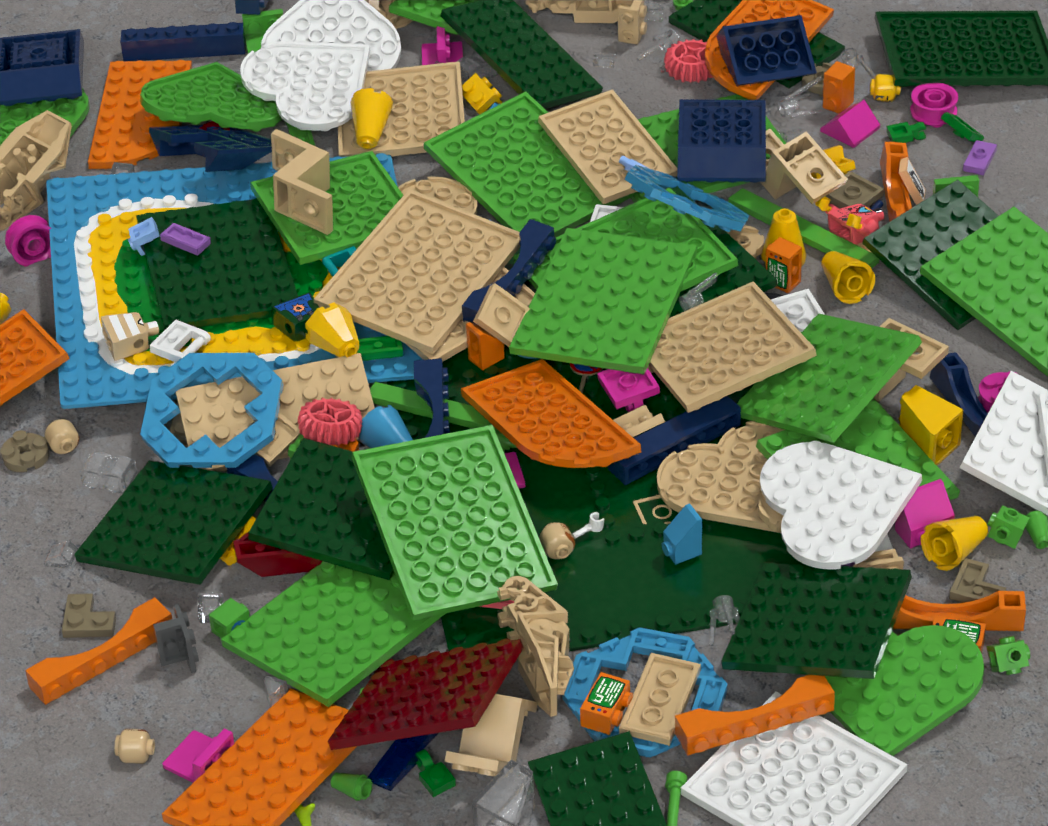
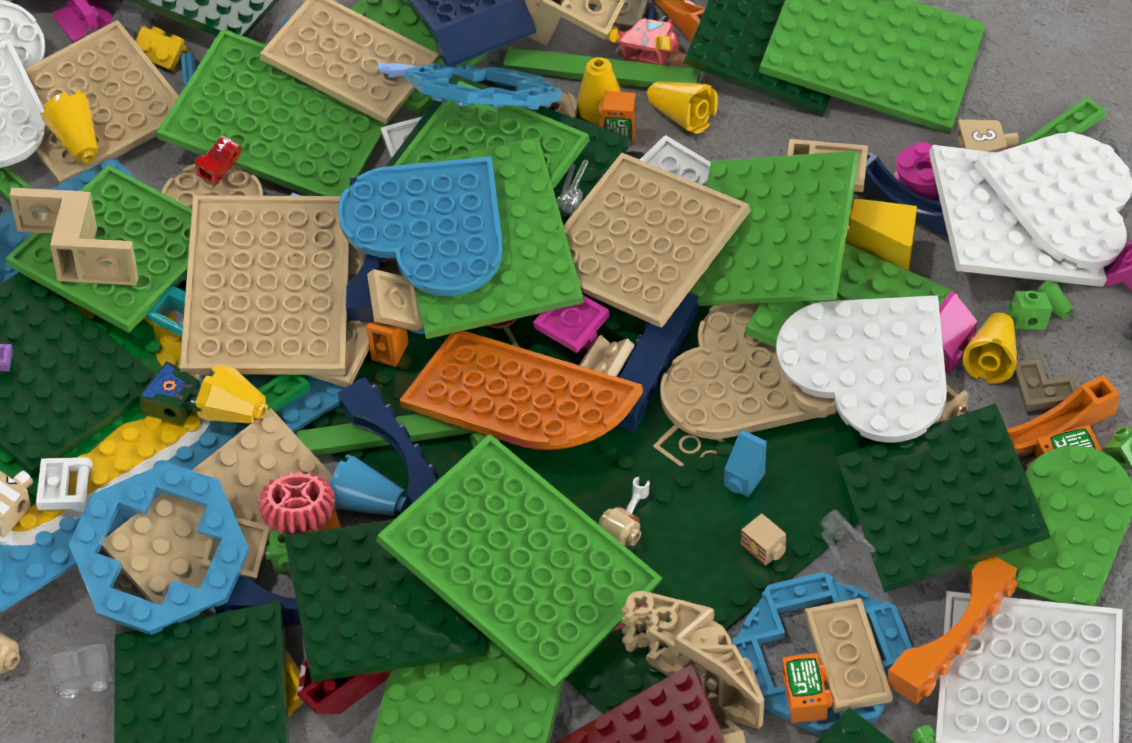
camera: 30 degrees left, 10 degrees up
(453, 177) = (218, 160): none -> red leg
(564, 269) = (430, 218): none -> dark azure plate
(658, 594) = (763, 540): none -> tan brick

